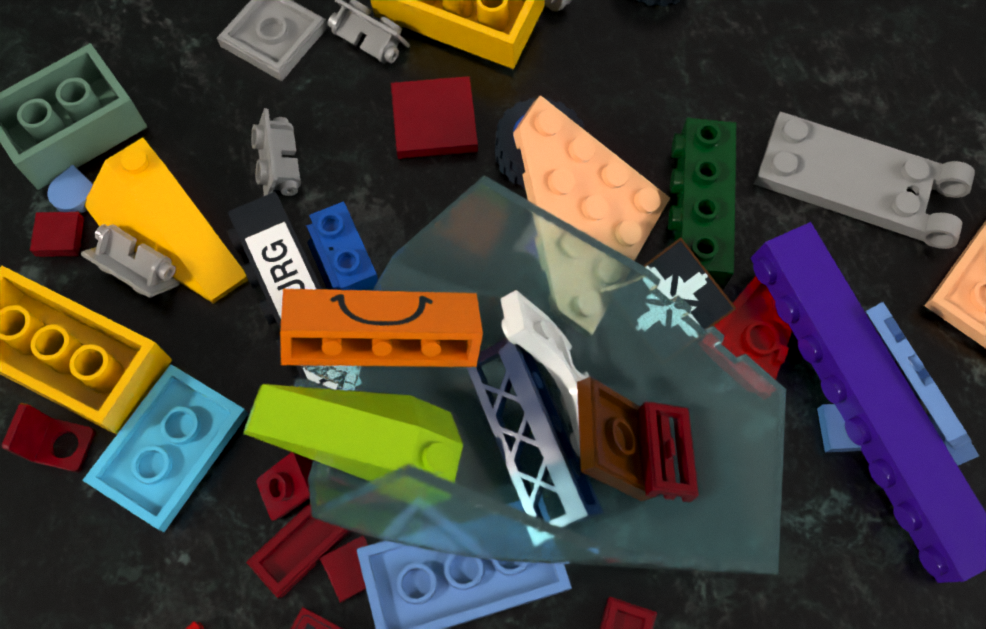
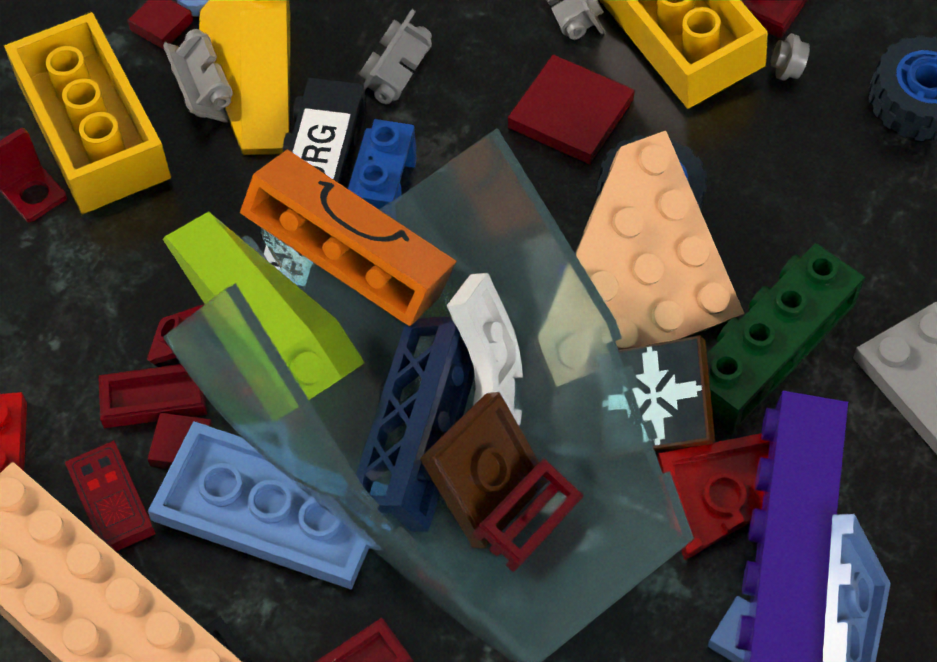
camera: 40 degrees right, 10 degrees down
(166, 447) = (106, 243): medium azure plate -> none

